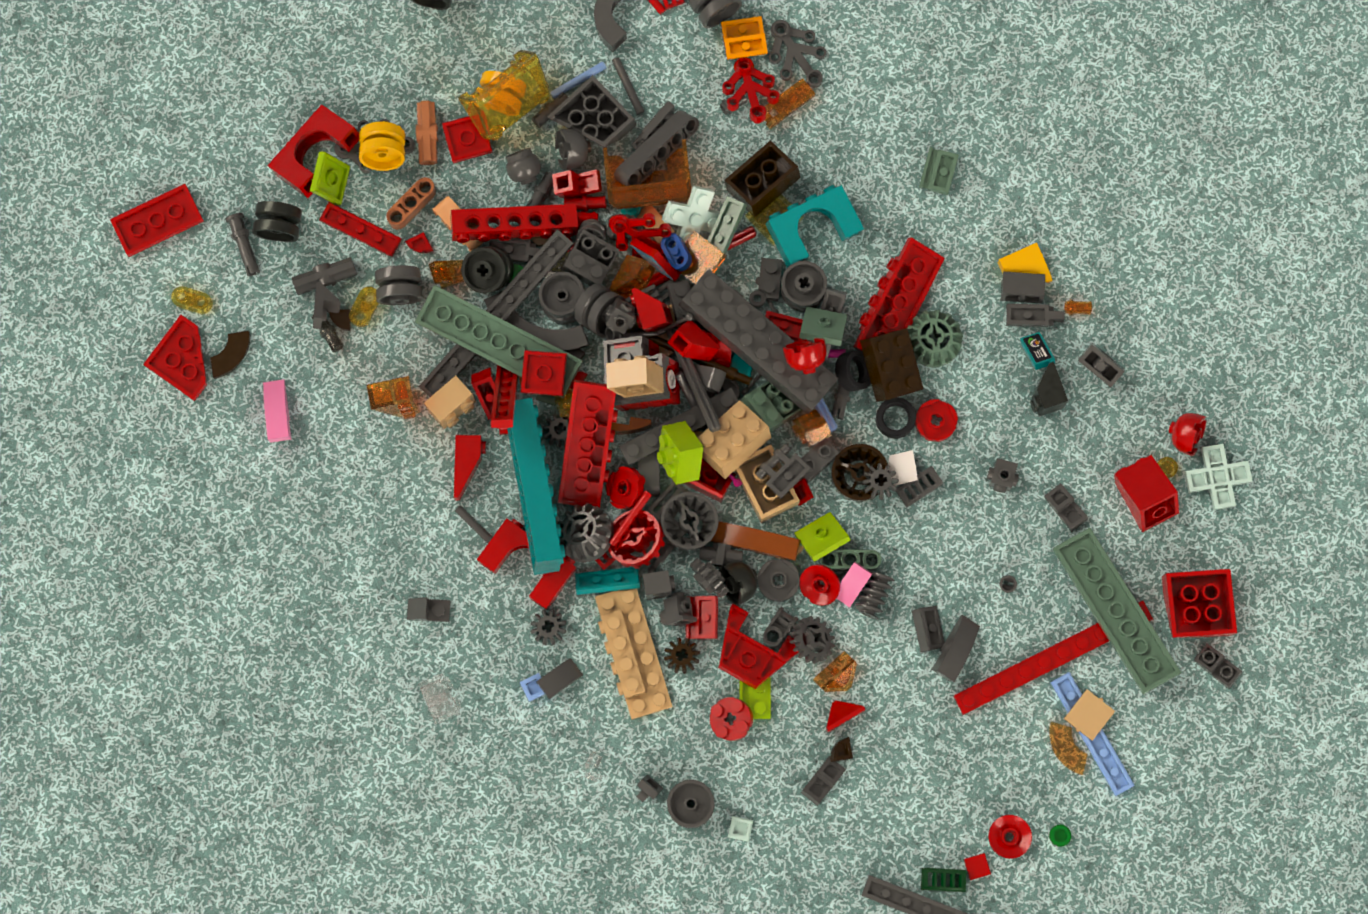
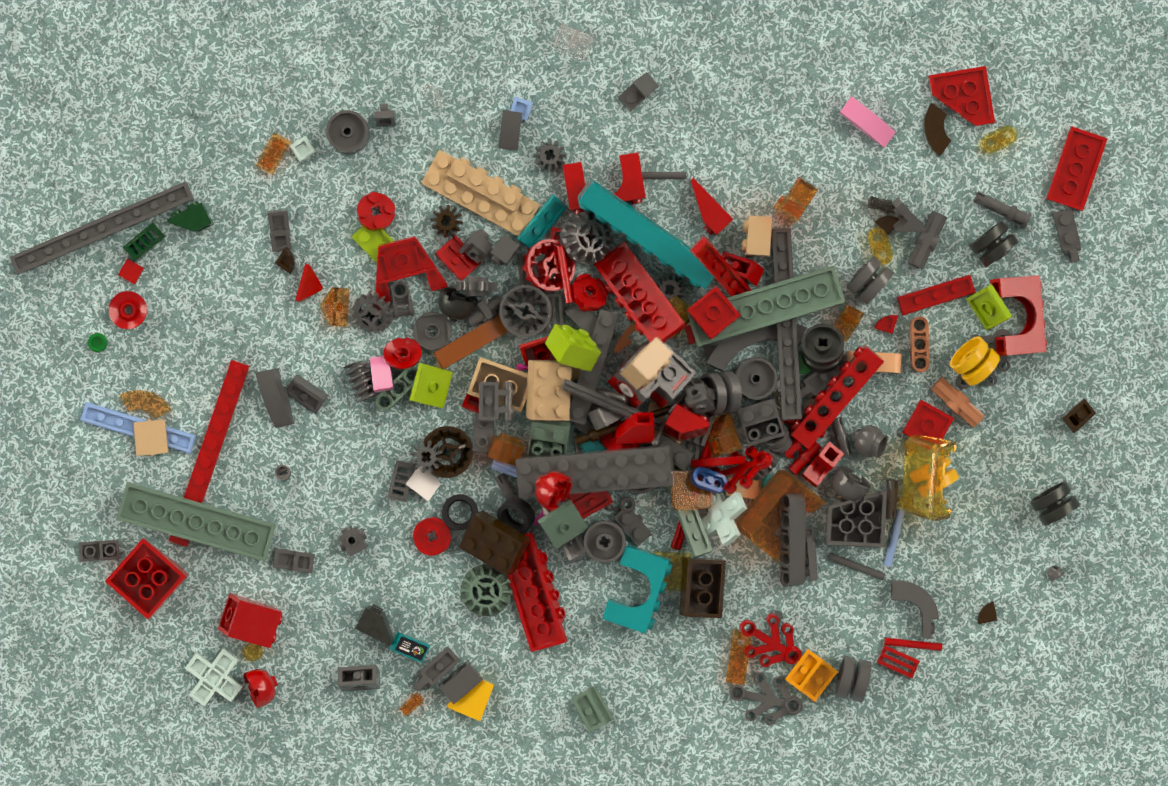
camera: 130 degrees right, 10 degrees up
(214, 178) = (1067, 233): none -> dark grey hinge
(347, 36) = (1078, 415): none -> dark brown slope
(768, 848) = (273, 153): none -> clear orange plate
(886, 858) = (193, 219): none -> dark green slope

